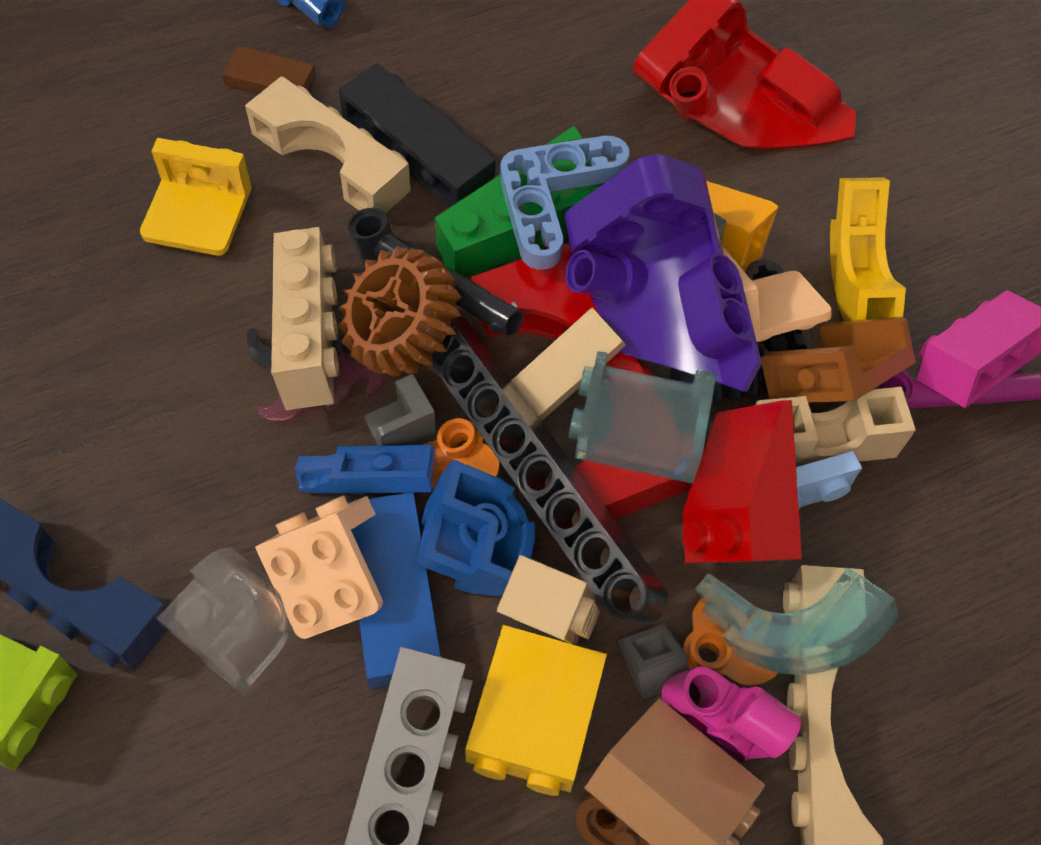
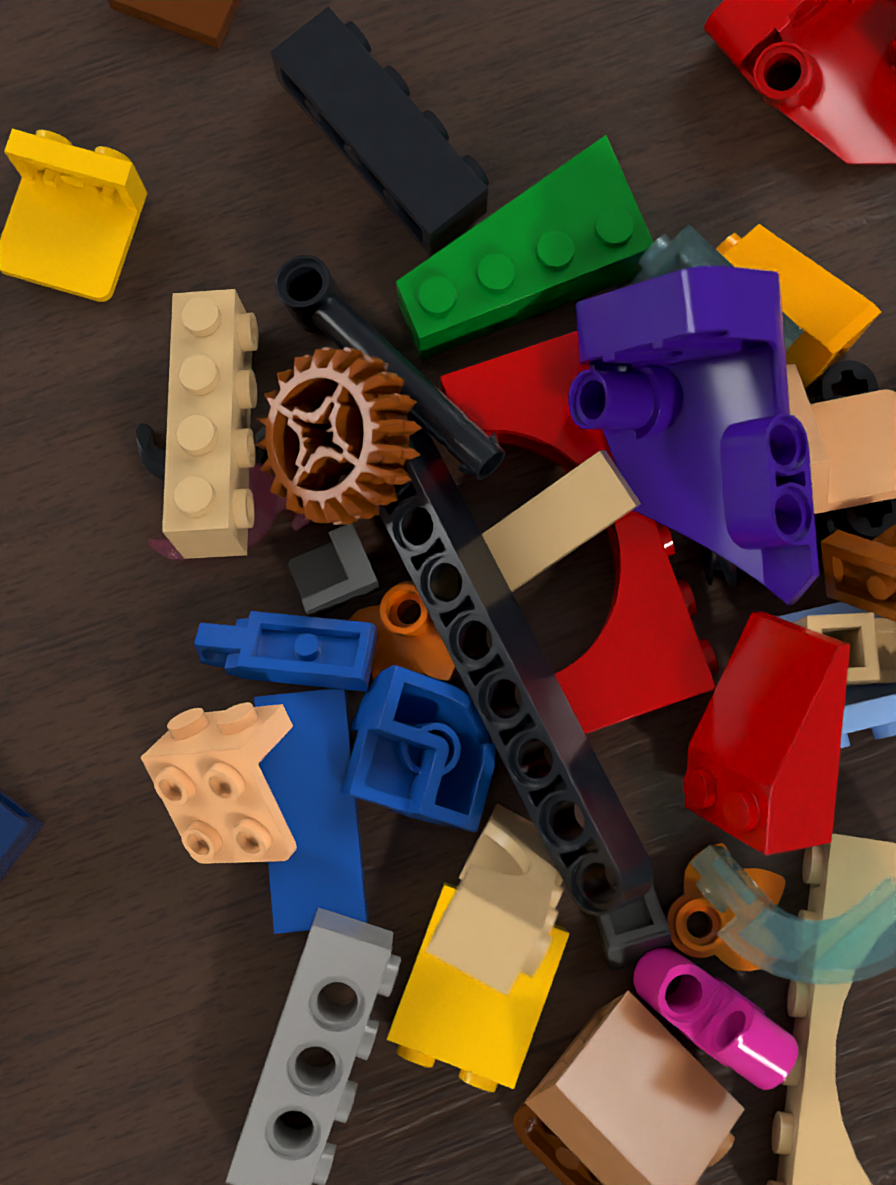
camera: 10 degrees right, 20 degrees up
(230, 617) = (109, 835): clear brick -> none
(293, 120) = (206, 89): tan arch -> none
(544, 178) = (555, 234): medium blue beam -> none
(642, 420) = (652, 620): clear light blue panel -> none

